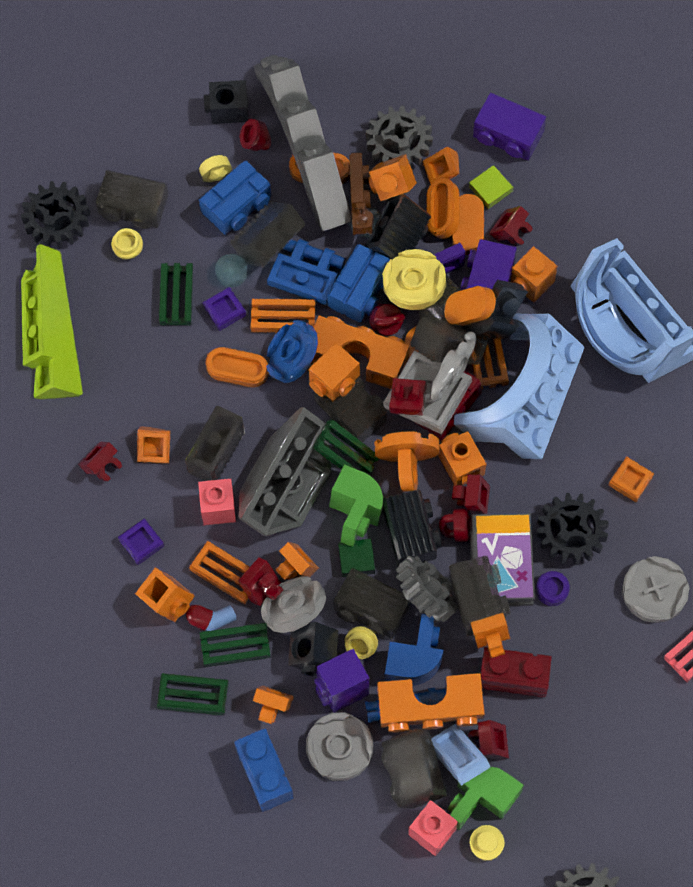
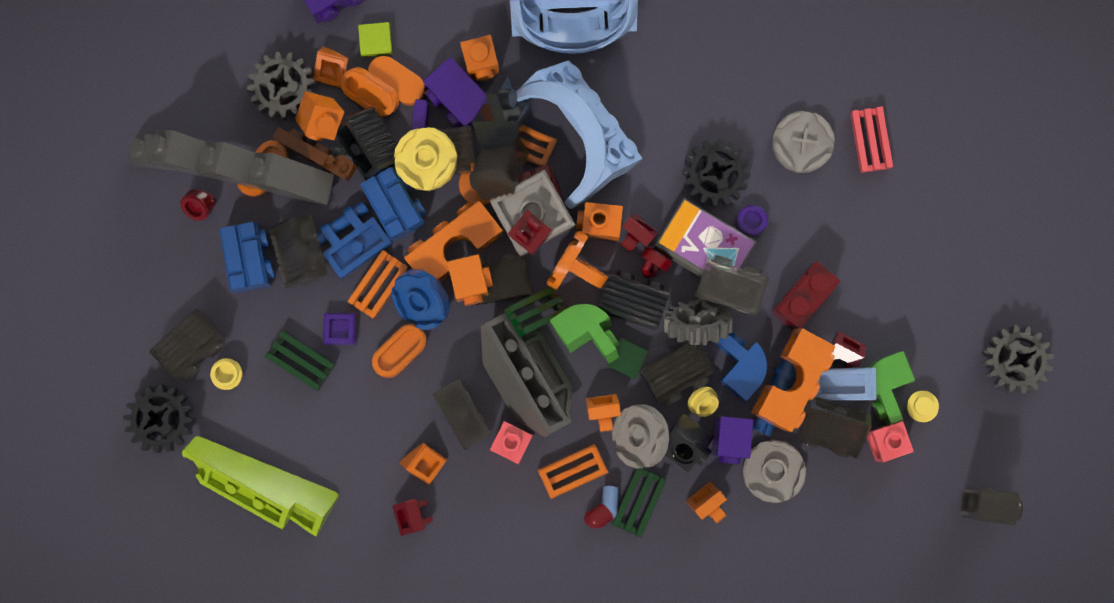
camera: 60 degrees left, 15 degrees up
(141, 541) = (502, 524): dark purple tile -> none
(165, 595) = (567, 535): orange brick -> none
(191, 706) = (668, 568): dark green tile -> none
(215, 168) = (207, 257): light yellow tile -> none
(227, 90) = (145, 194): black brick -> none
(231, 270) = (308, 301): clear light blue tile -> none
(260, 582) = (603, 450): dark red tile -> none
(264, 770) = (760, 545): blue brick -> none
(386, 319) = (439, 203): dark red tile -> none
(453, 366) = (530, 179): light grey piece -> none
(470, 305) = (486, 130): orange tile -> none
(491, 633) = (772, 296): orange tile -> none
(509, 224) = (421, 46): dark red tile -> none
(631, 479) = (701, 98): orange tile -> none

